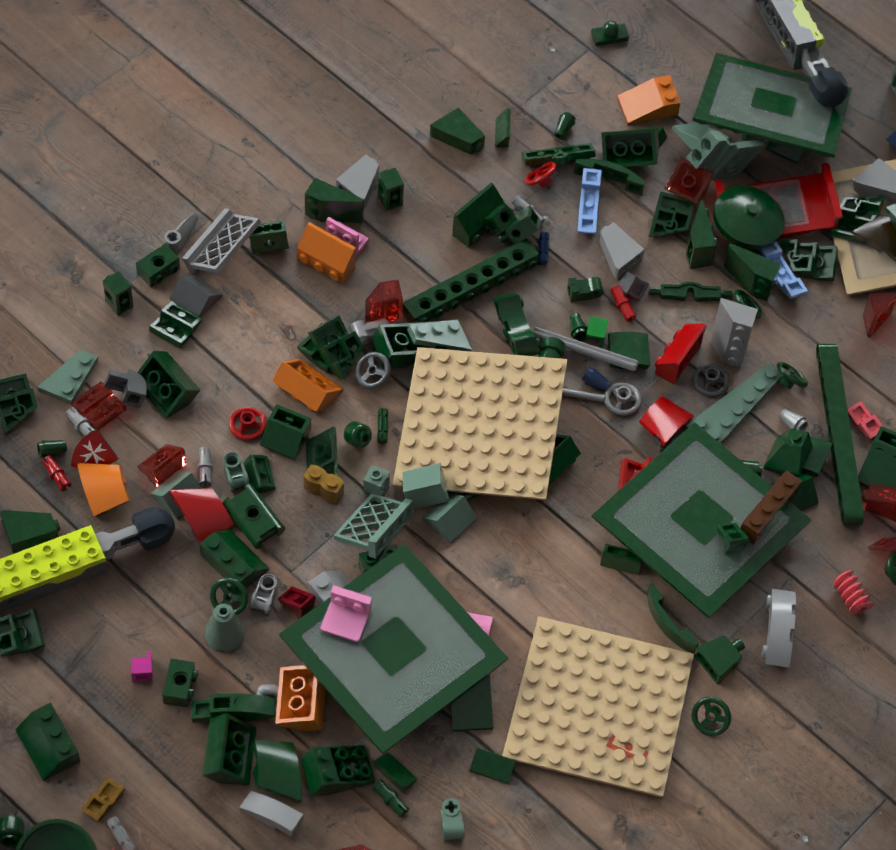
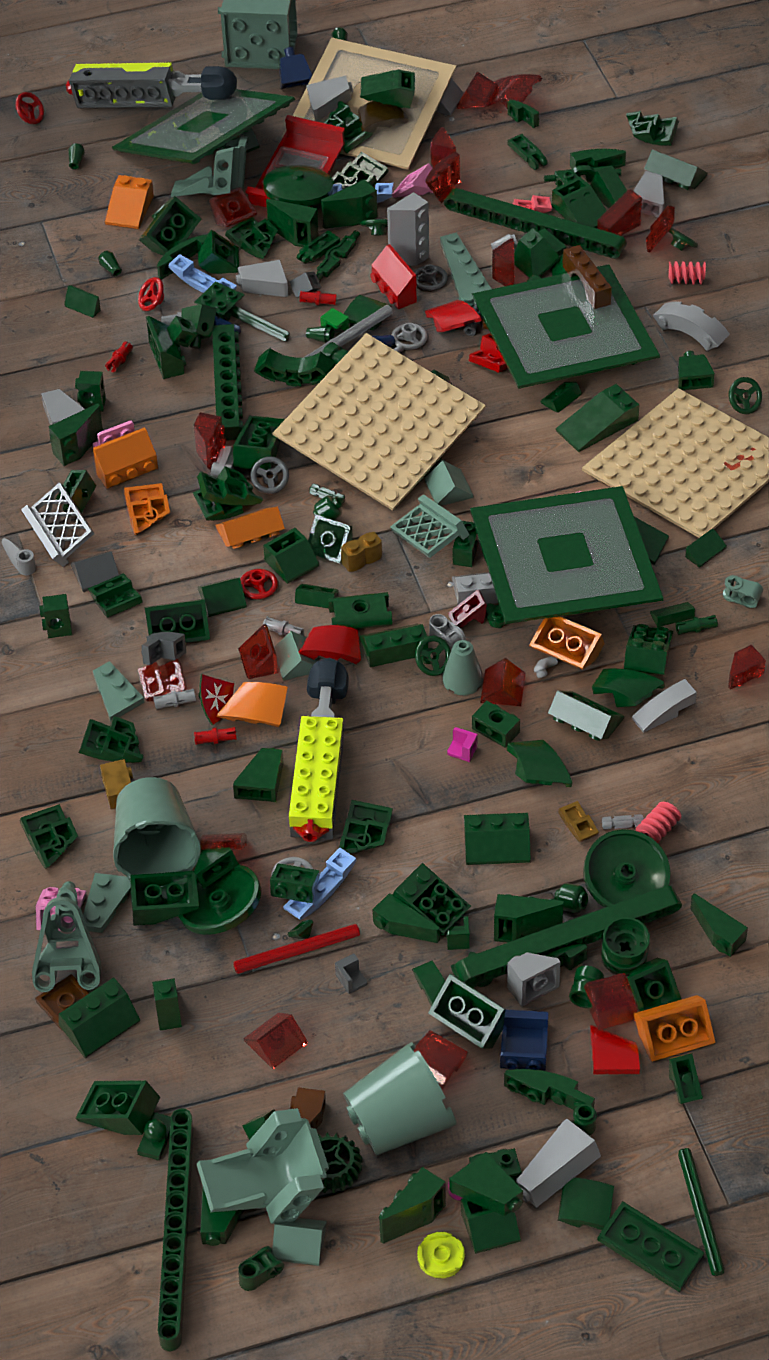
camera: 55 degrees left, 10 degrees down
(51, 447) = (185, 730): dark green cone -> none
(149, 736) = (538, 763): none -> dark green slope
(163, 257) = (43, 580): dark green brick -> none
(217, 402) = (223, 596): none -> dark green slope
(231, 670) = (503, 684): none -> clear red slope
(235, 474) = (303, 607): sand green piece -> none
(242, 706) = (542, 696): dark green slope -> none
(288, 297) = (146, 505): none -> orange slope
(346, 614) = (517, 565): bright pink bracket -> none
(376, 481) = (383, 515): sand green brick -> none
(425, 486) = (414, 479): sand green slope -> none
(441, 333) = (265, 419): sand green wing -> none
(453, 189) = (119, 356): none -> red pin
(458, 132) = (64, 329): dark green slope -> none
(558, 155) = (138, 277): dark green hinge -> none
(563, 274) = (260, 323): none -> axle
(567, 228) = (221, 298): none -> dark green hinge
(584, 289) = (287, 312): dark green leg -> none
(606, 603) = (600, 418): none -> dark green slope
(609, 33) = (38, 201): dark green tile -> none
(627, 201) = (218, 255): none -> dark green slope
(681, 638) = (646, 390): dark green slope -> none
(683, 32) = (76, 154): none -> dark green cone
(688, 272) = (317, 247): none -> dark green hinge
(734, 538) = (602, 305): dark green slope -> none
(760, 433) = (503, 263): none -> clear red slope
(791, 376) = (464, 228): dark green piece -> none
(828, 311) = (414, 183): none -> bright pink slope
(837, 327) = (444, 176): none -> clear red slope

